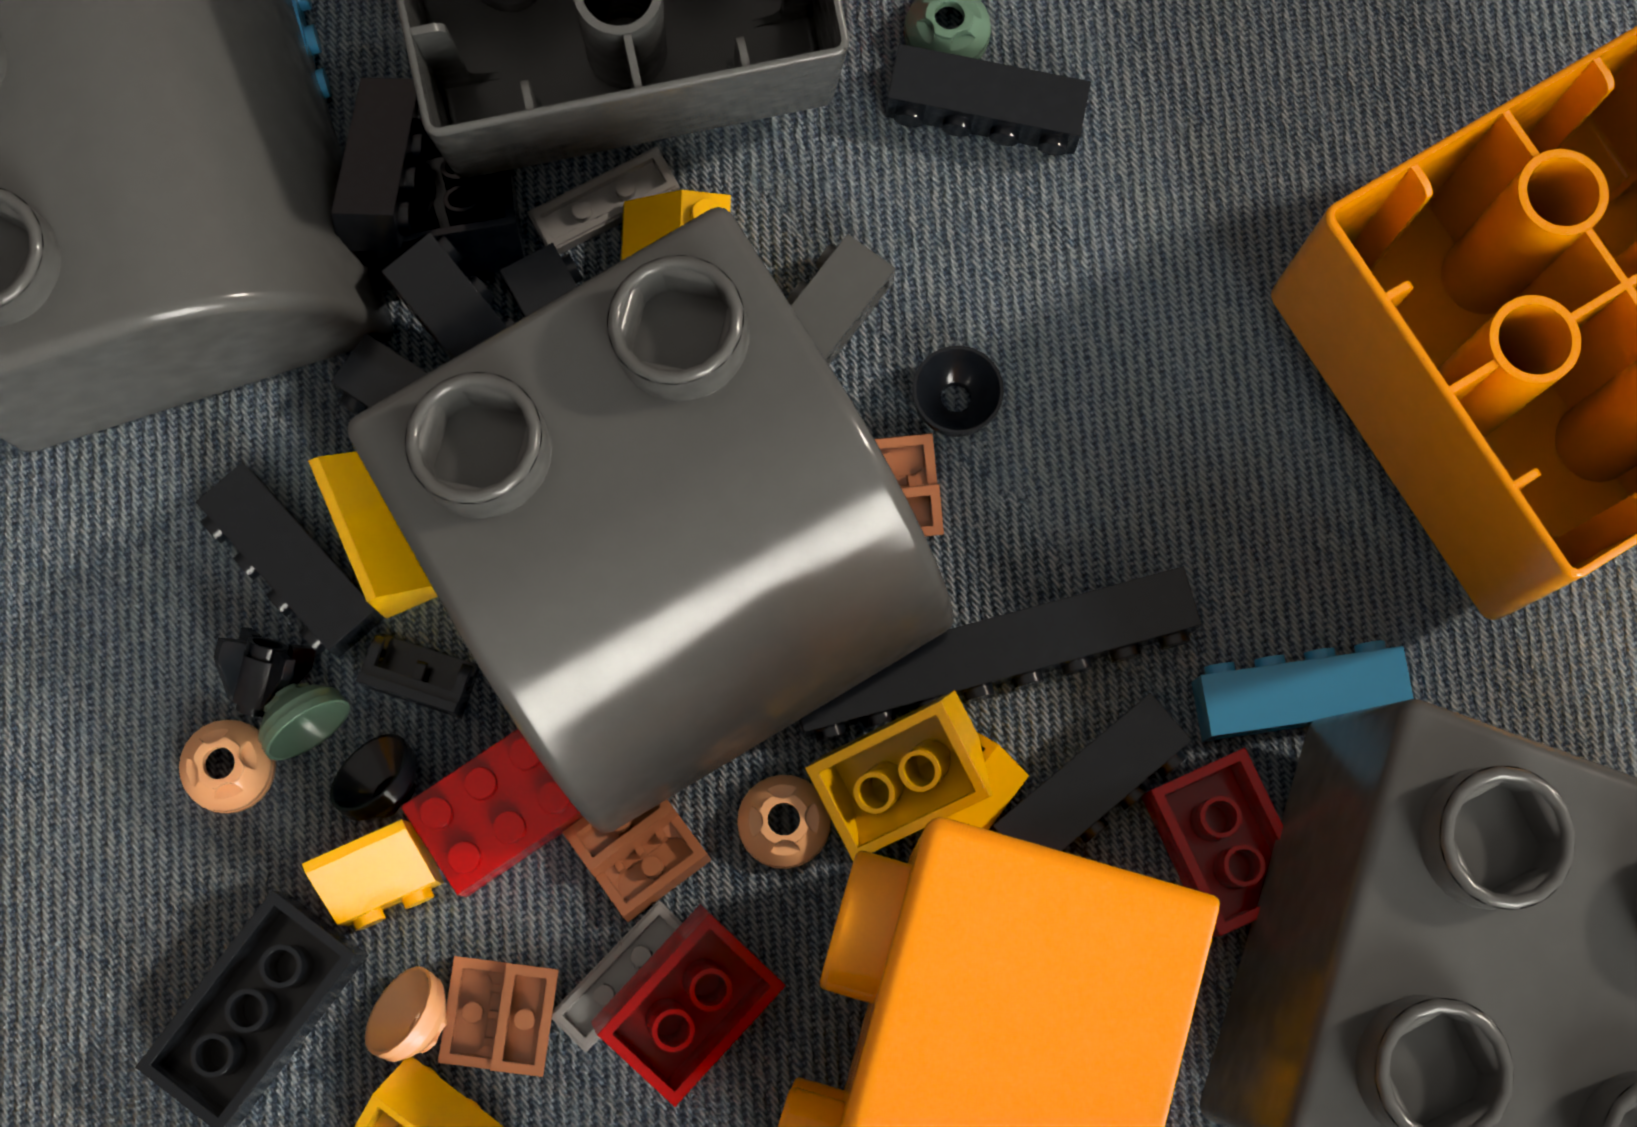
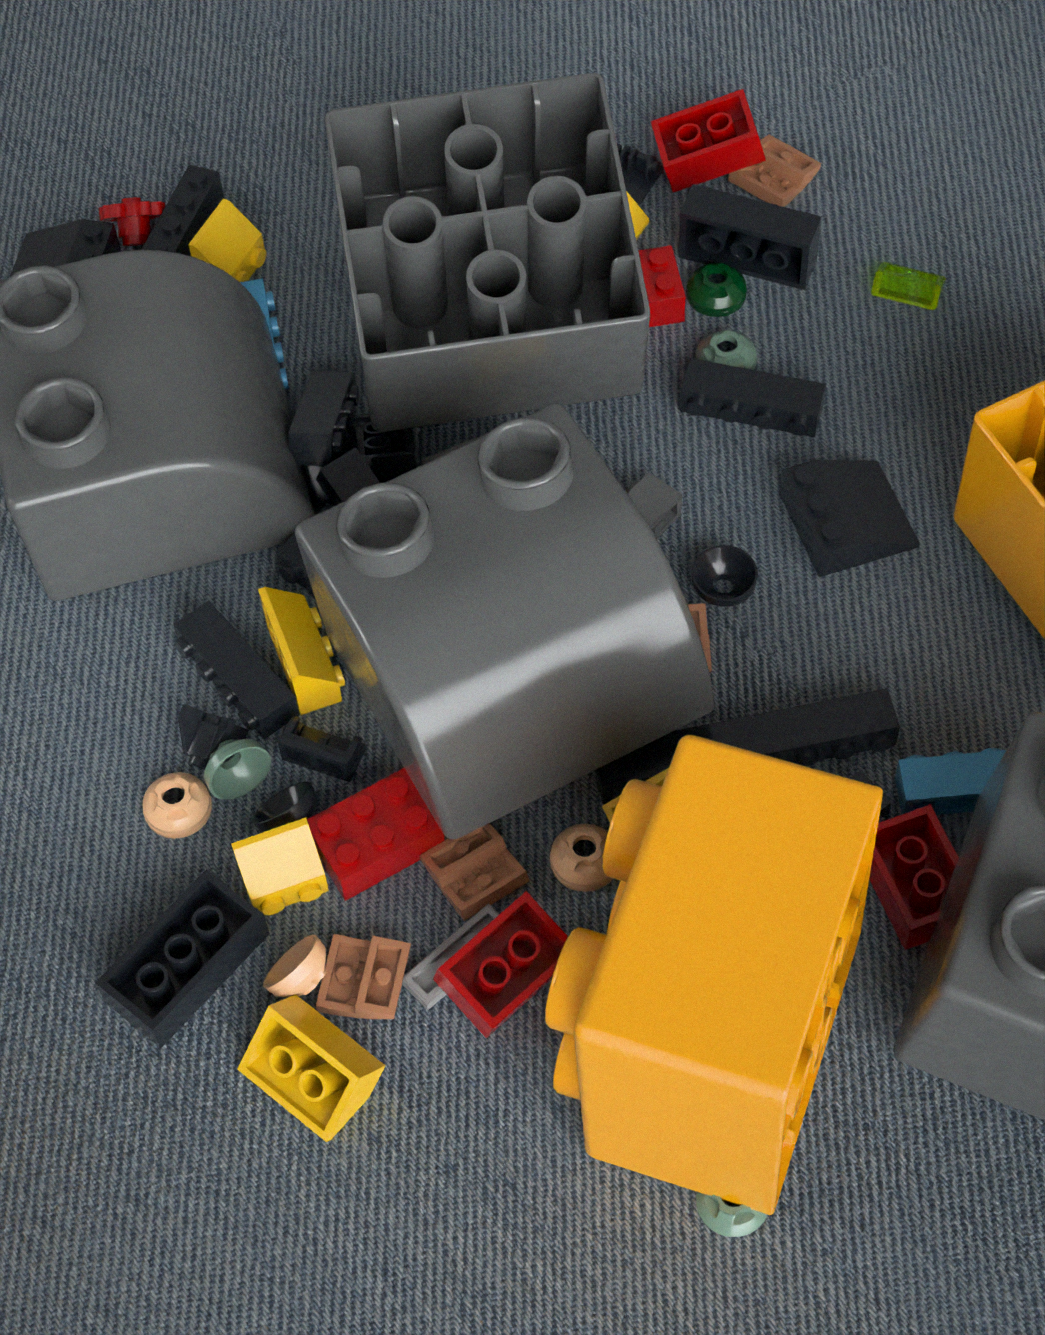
camera: 10 degrees right, 20 degrees down
(1120, 281) = (845, 513): none -> black slope

